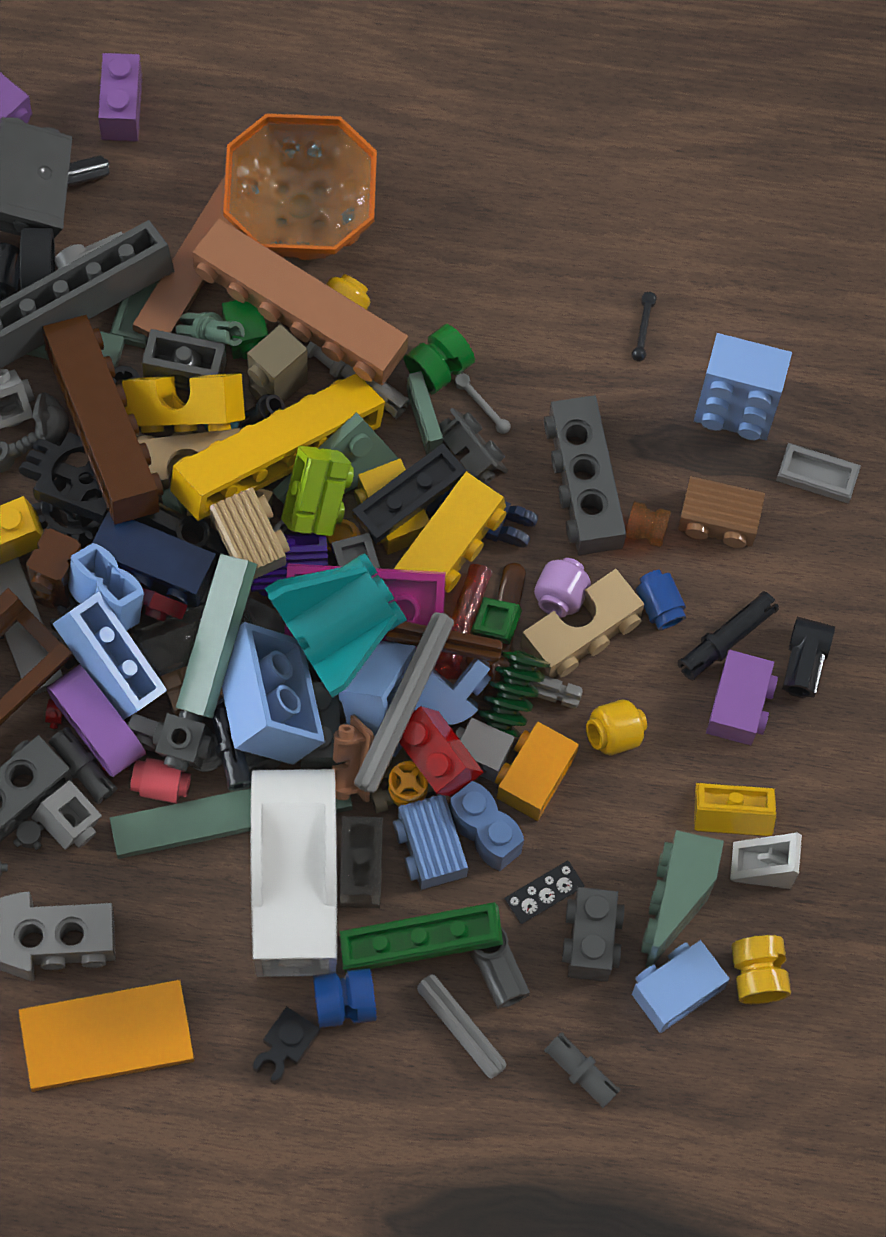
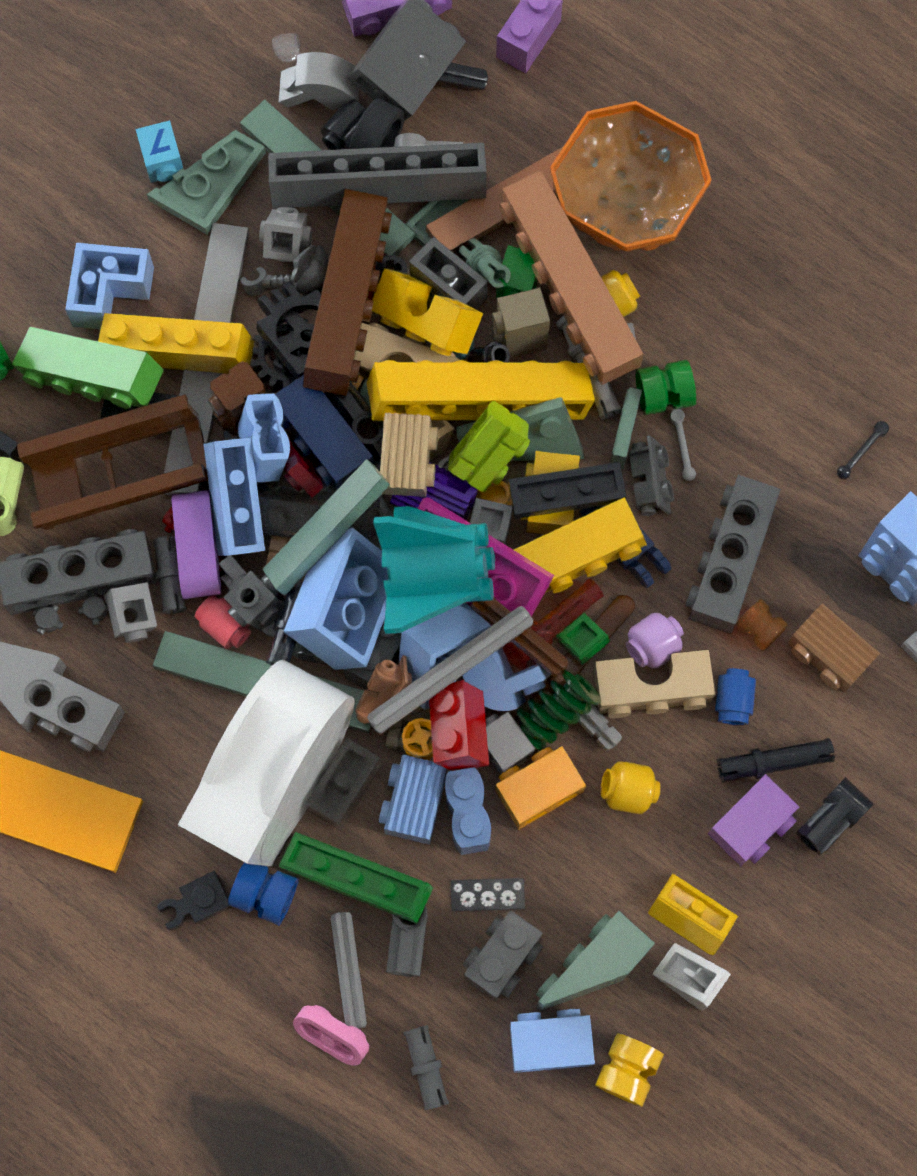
camera: 35 degrees right, 5 degrees up
(481, 1089) = (331, 1035): none -> bright pink plate

